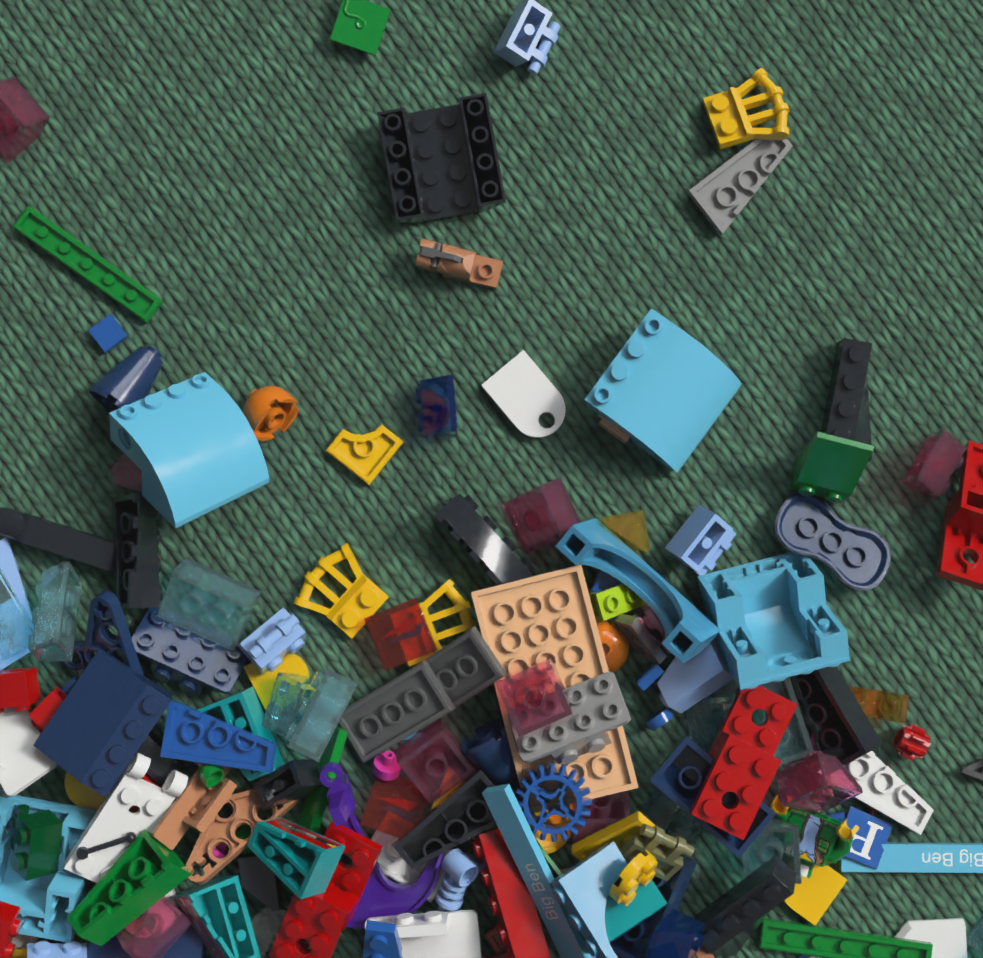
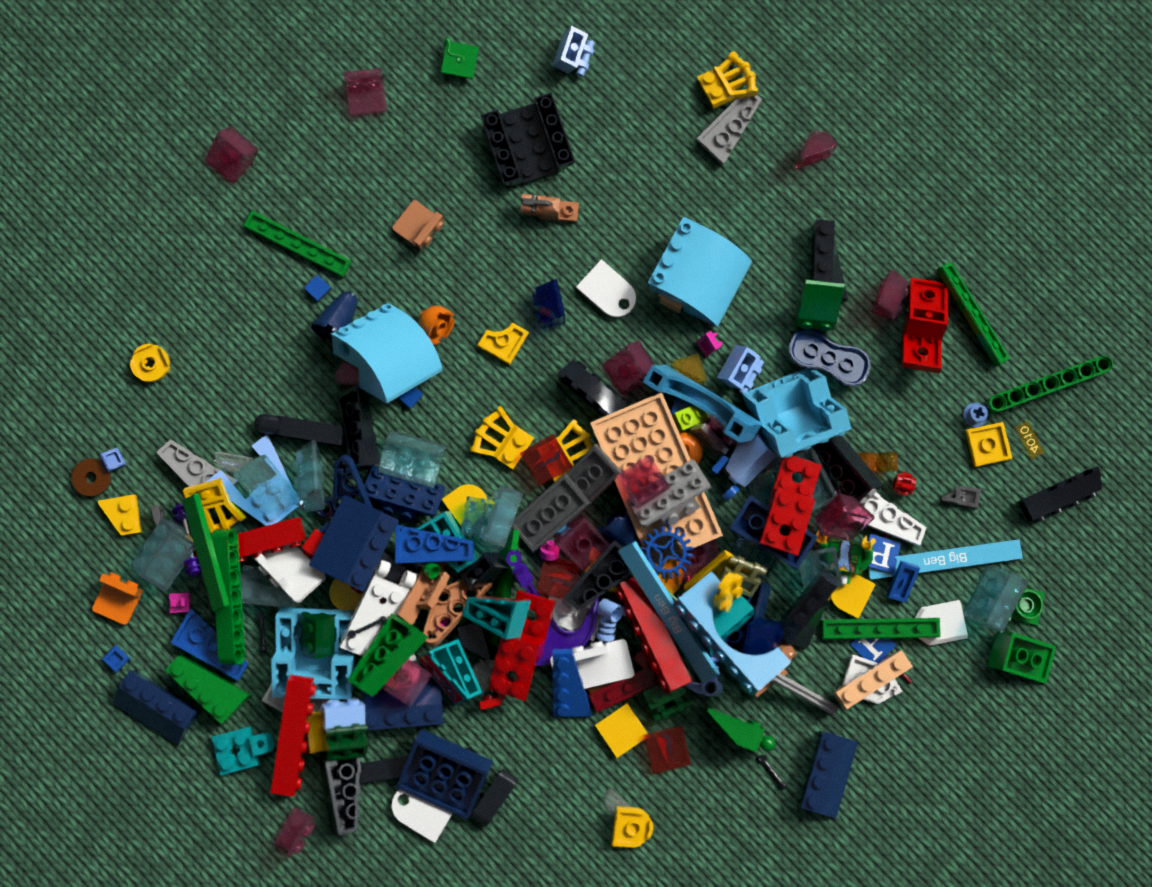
camera: 10 degrees left, 5 degrees down
(216, 53) = (365, 91): none -> clear pink bracket
(222, 514) = (411, 397): none -> blue tile
(266, 261) = (418, 225): none -> nougat bracket
(274, 641) = (460, 476): light blue brick -> none
(660, 496) = (708, 343): none -> dark pink tile
(861, 229) = (817, 147): none -> clear pink slope
(888, 883) = (903, 581): none -> blue plate

